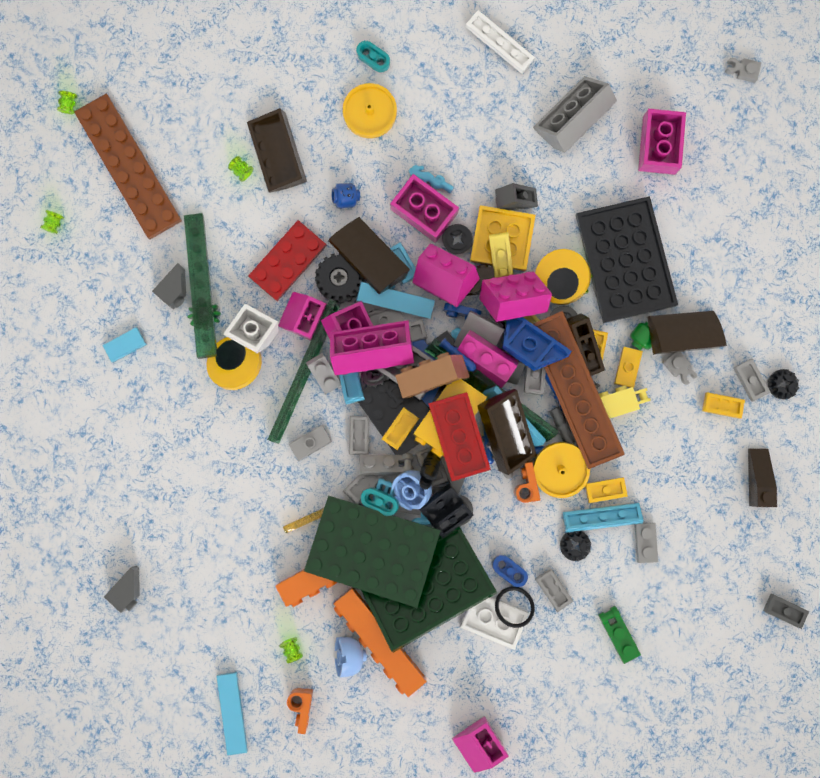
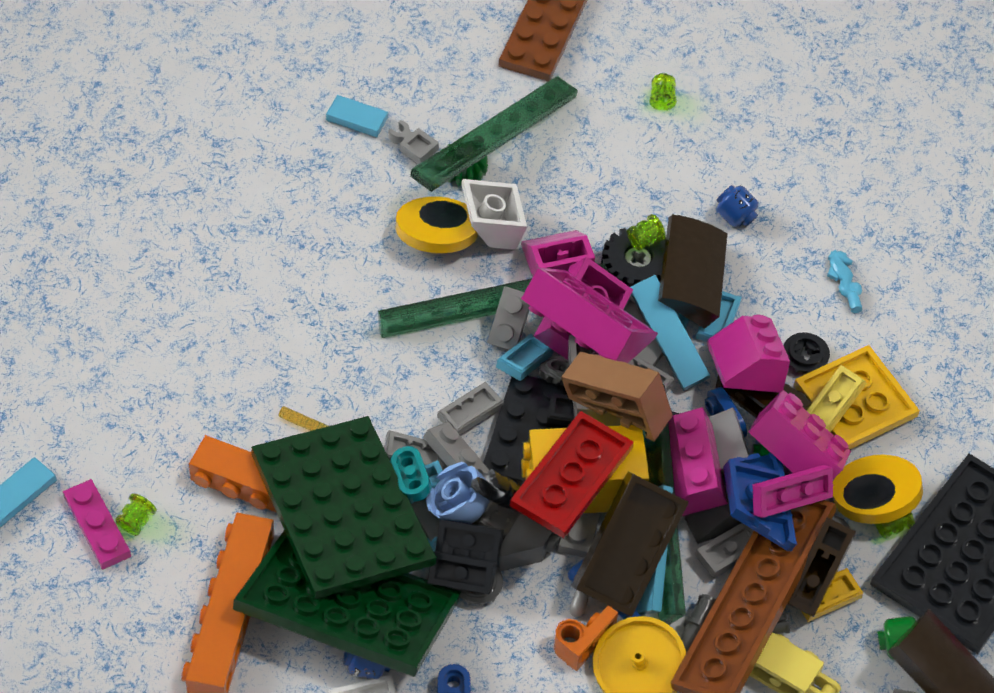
camera: 50 degrees right, 30 degrees down
(125, 591) = (67, 294): dark grey slope -> none
(170, 329) = (415, 144): none -> light grey plate
(172, 287) = (466, 112): dark grey slope -> none
(276, 151) = (718, 113): dark brown slope -> none
(279, 670) = (96, 524): none -> dark pink plate
(287, 260) = (602, 202): red plate -> none
(303, 708) = (72, 578): orange plate -> none
(310, 443) = (413, 367): light grey plate -> none
(332, 263) = (646, 232): none -> clear neon green bush
(349, 656) = (181, 579): light blue cylinder -> none
(369, 110) = (857, 170): yellow piece -> none
(375, 55) = (921, 137): teal plate -> none
(400, 428) = (509, 437): yellow plate -> none
(424, 208) = (804, 288): dark pink brick -> none
(470, 365) = (668, 434): blue piece -> none
(516, 197) = (919, 376): dark grey slope -> none
(546, 330) = (792, 491): none -> dark pink plate
(628, 367) = (847, 652): yellow plate -> none

